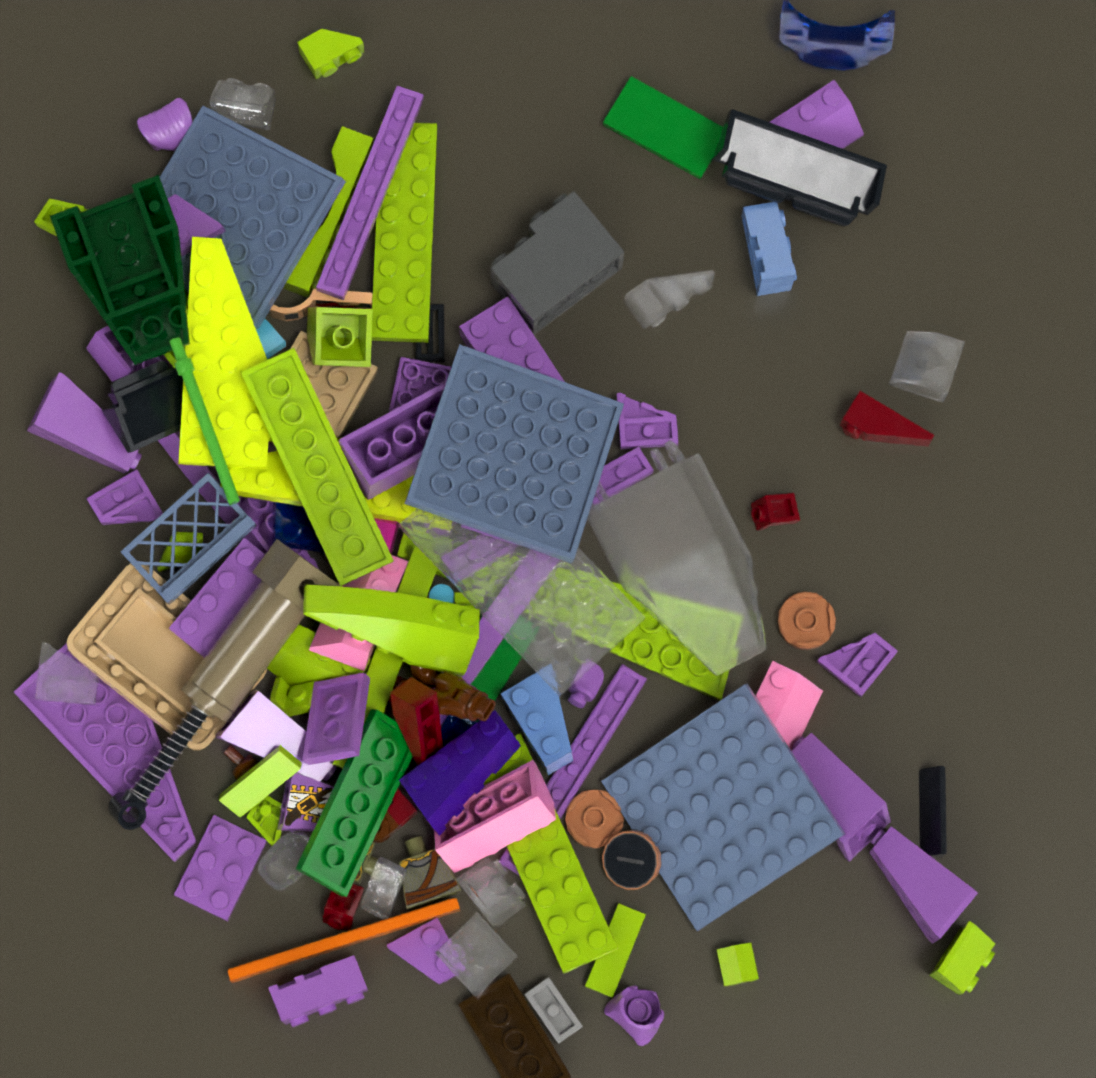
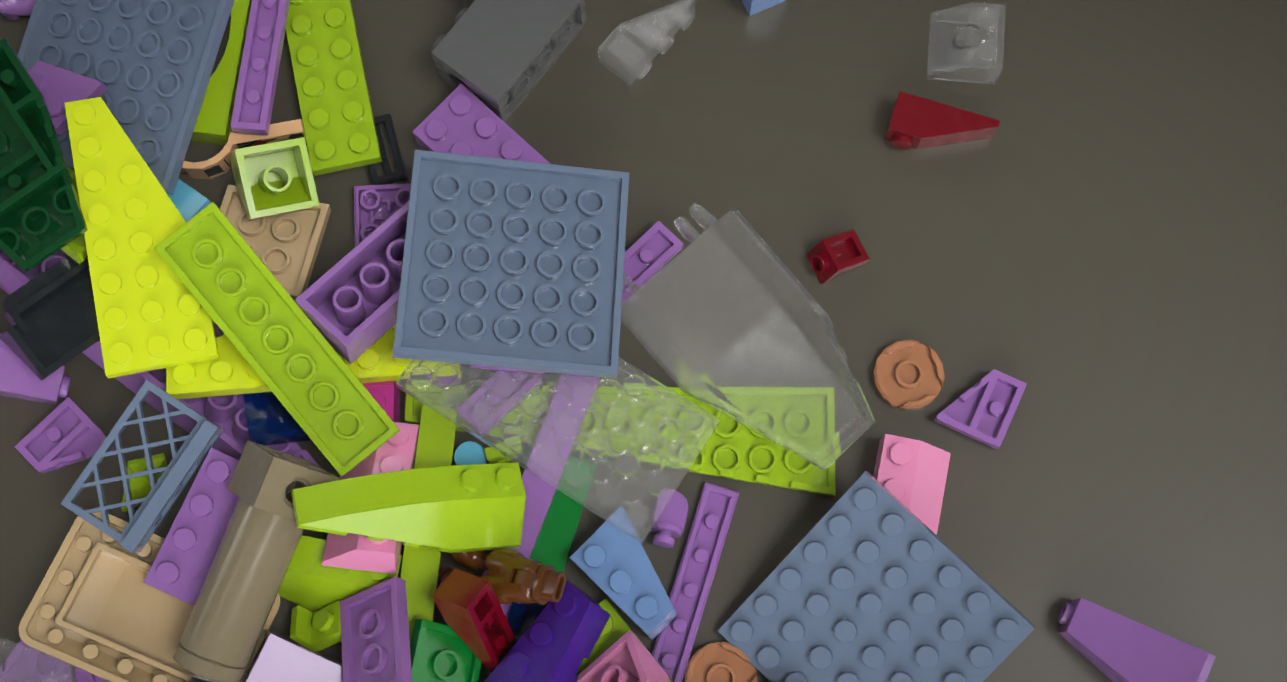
camera: 10 degrees left, 0 degrees up
(185, 369) = (86, 261): bright green bar -> none
(644, 425) = (660, 194): medium lavender wing -> none
(849, 798) = (1020, 575): medium lavender slope -> none
(933, 811) = (1122, 564): black slope -> none

